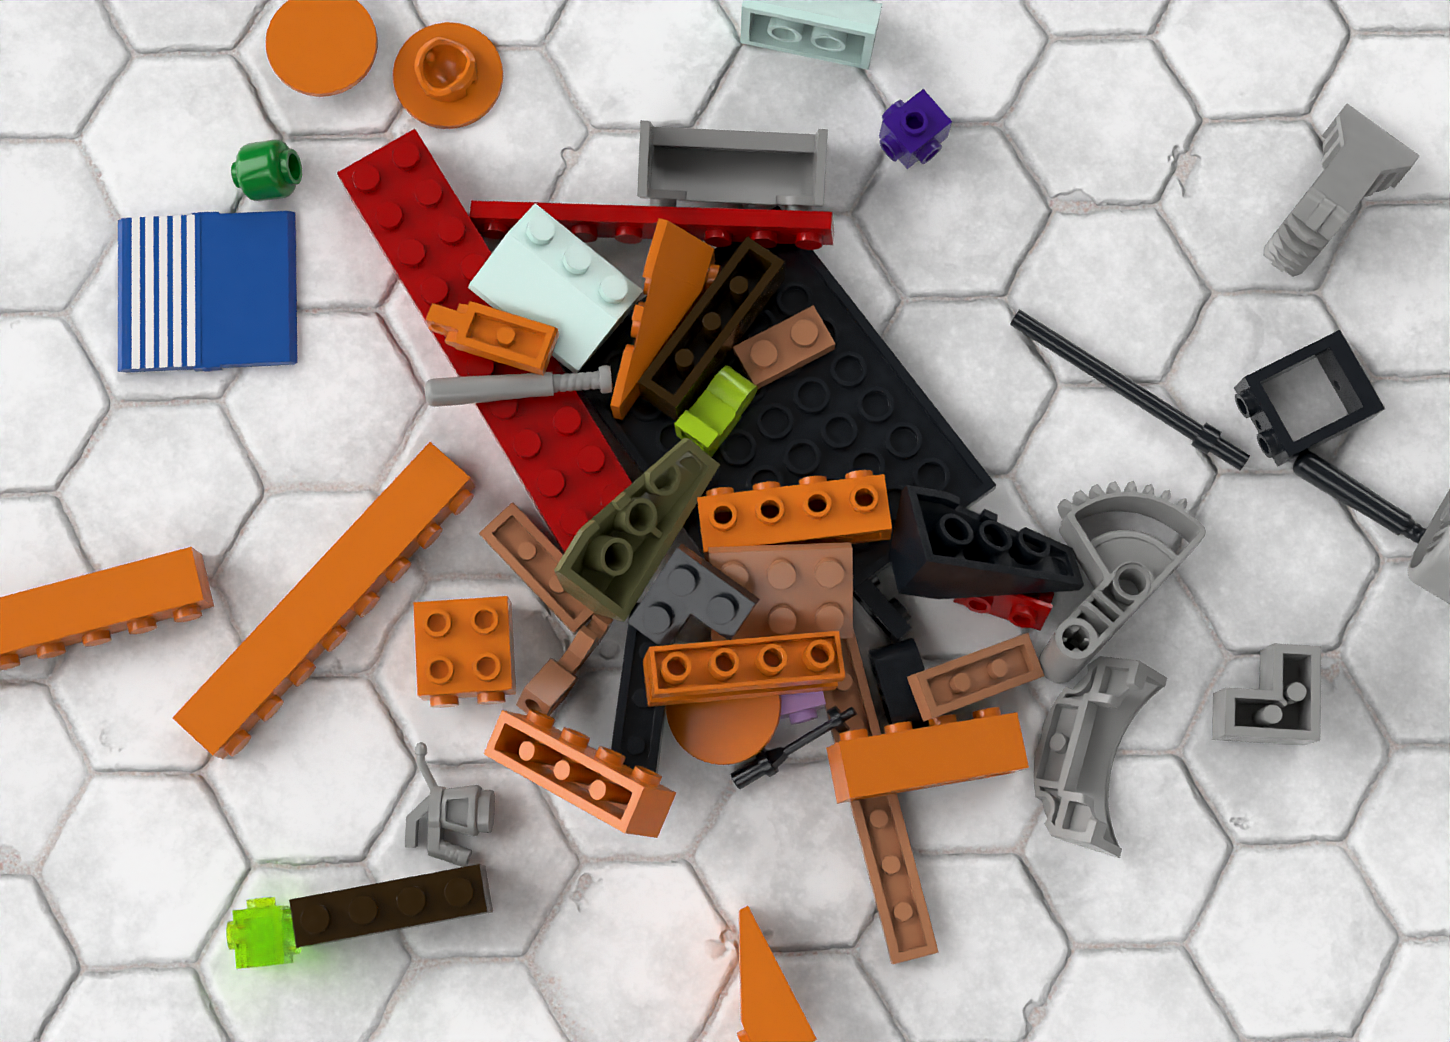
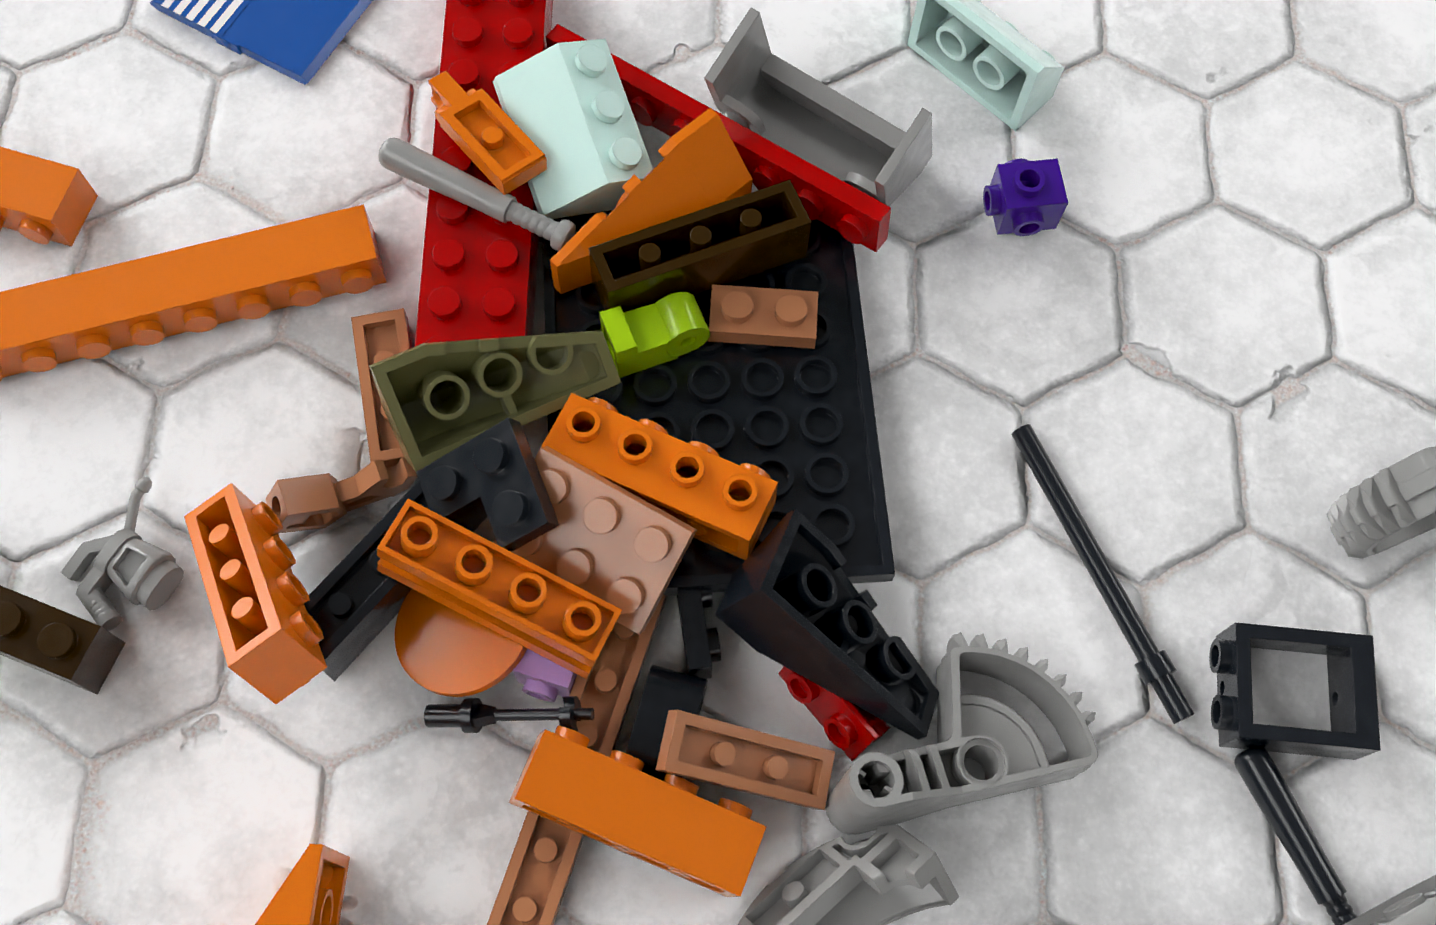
camera: 30 degrees right, 10 degrees down
(464, 650) = (253, 415): orange brick -> none

